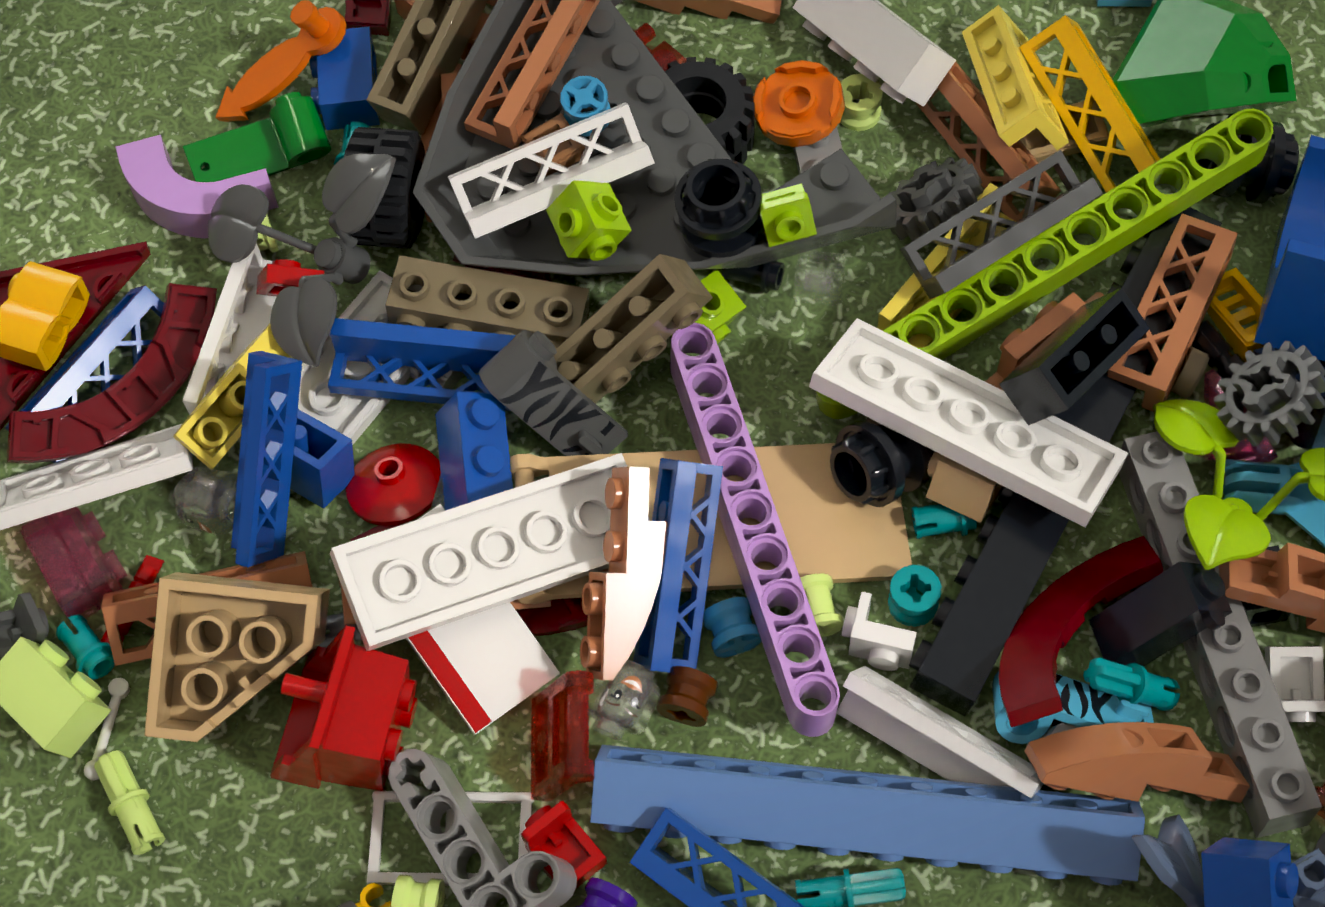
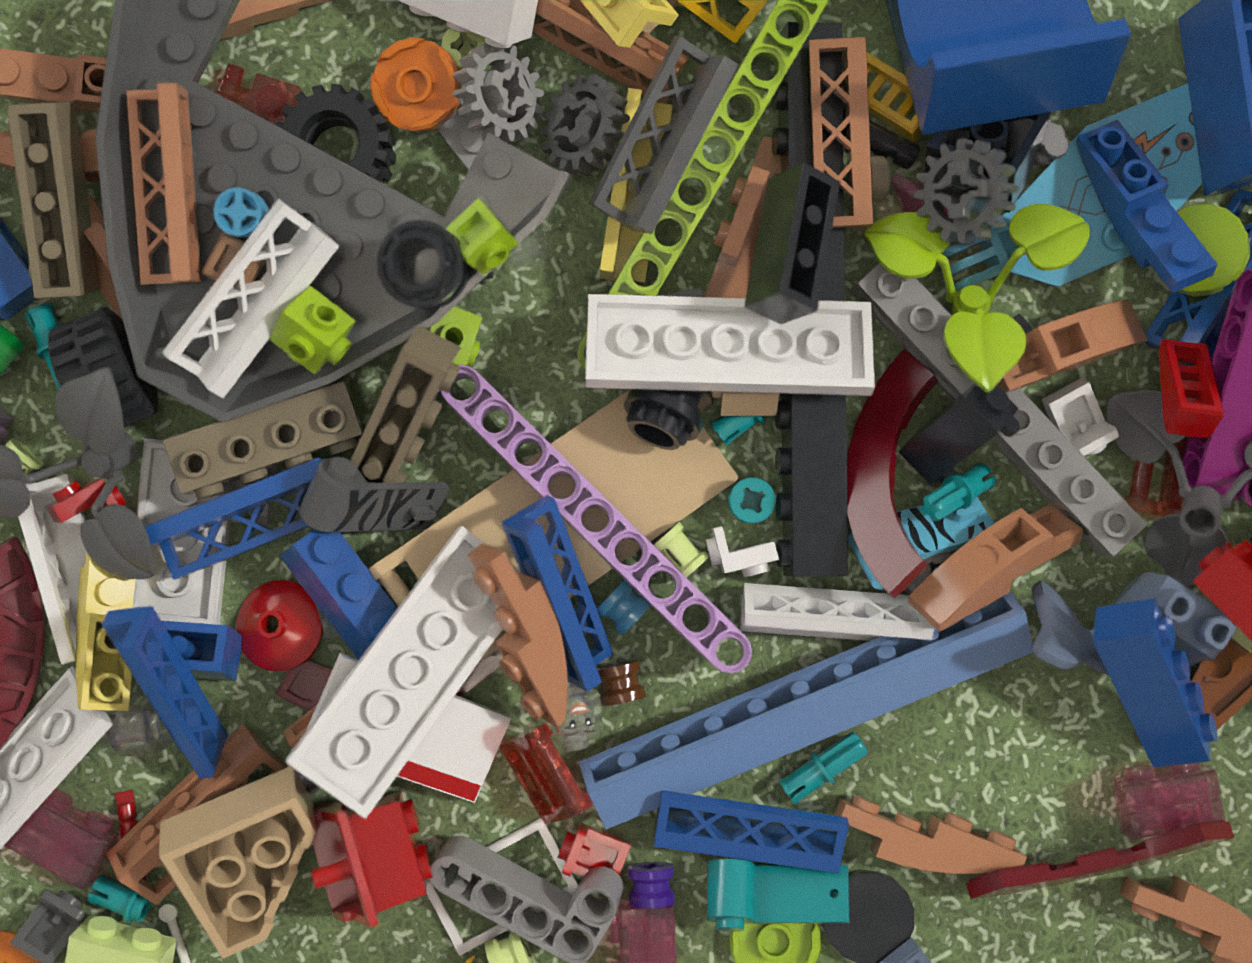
camera: 30 degrees left, 25 degrees up
(871, 136) = (498, 93): none -> light grey gear

